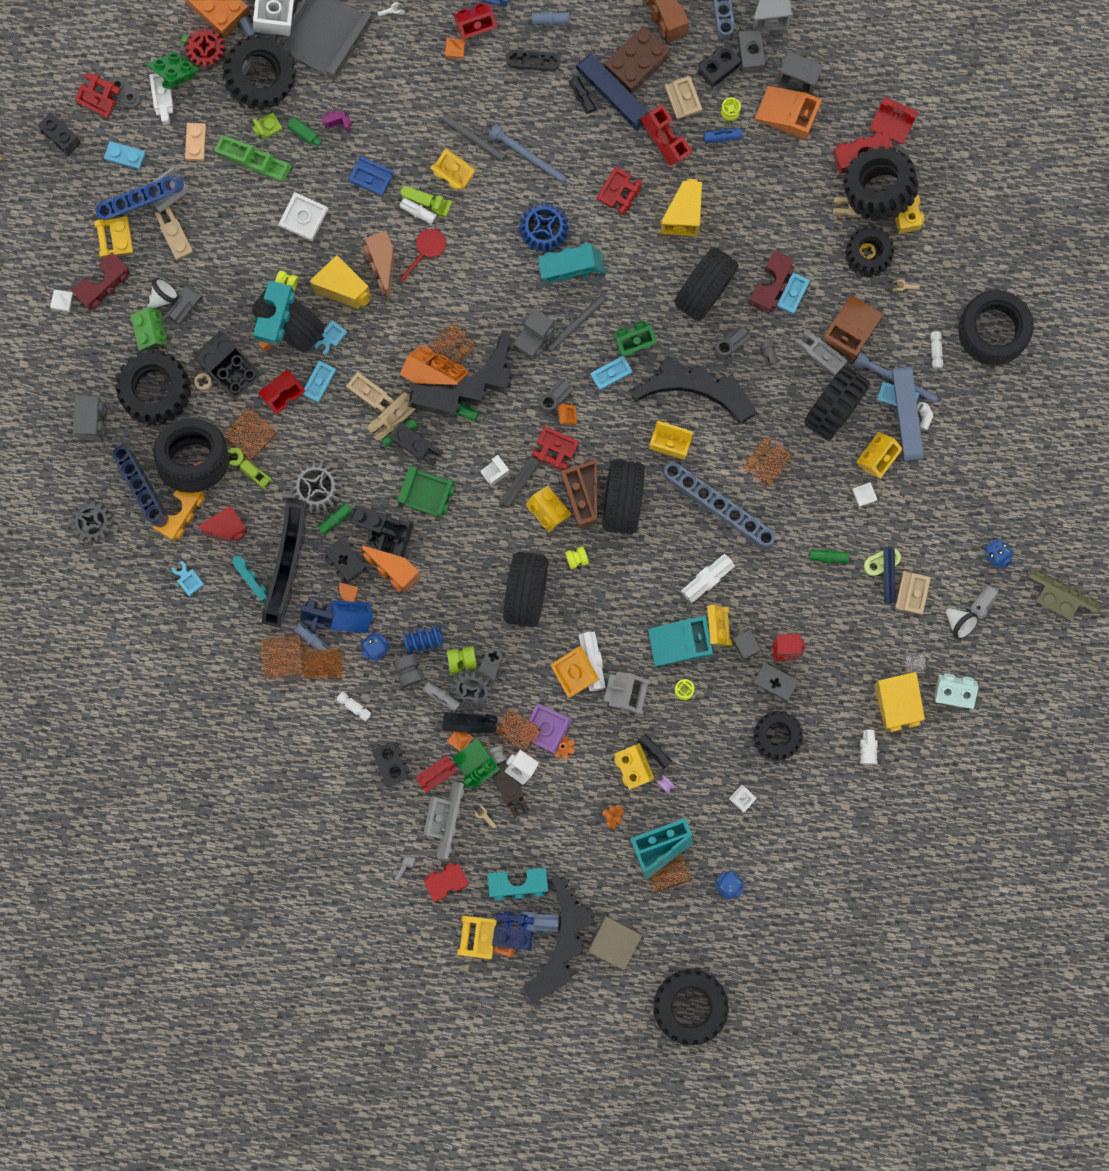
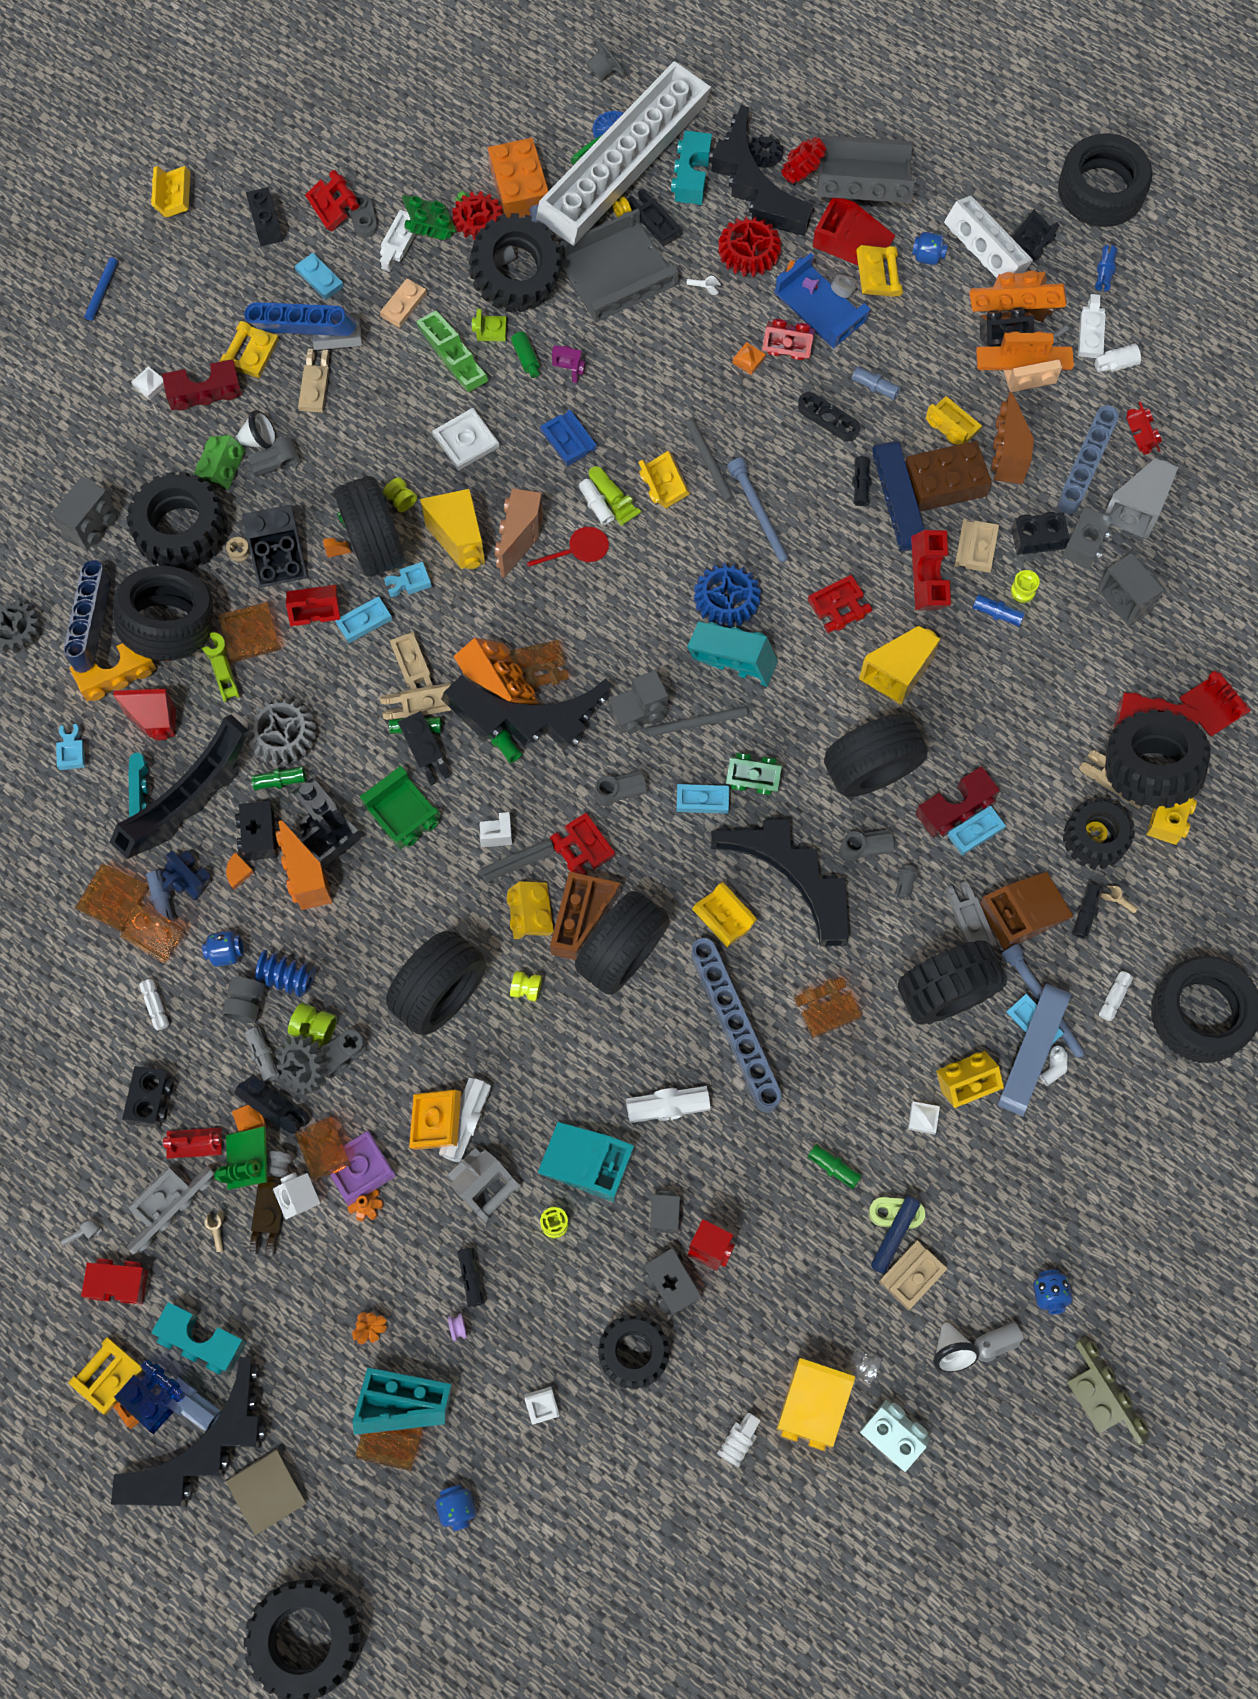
camera: 30 degrees right, 10 degrees down
(271, 329) = (333, 512): teal arch -> none
(351, 616) = (219, 897): blue panel -> none
(567, 414) = (621, 815): orange tile -> none
(617, 18) = (952, 421): none -> yellow bracket
(633, 766) = (431, 1279): yellow brick -> none
(719, 625) = (644, 1169): yellow plate -> none
(788, 111) = (1094, 625): orange slope -> none
(890, 306) = (1087, 911): none -> black pin

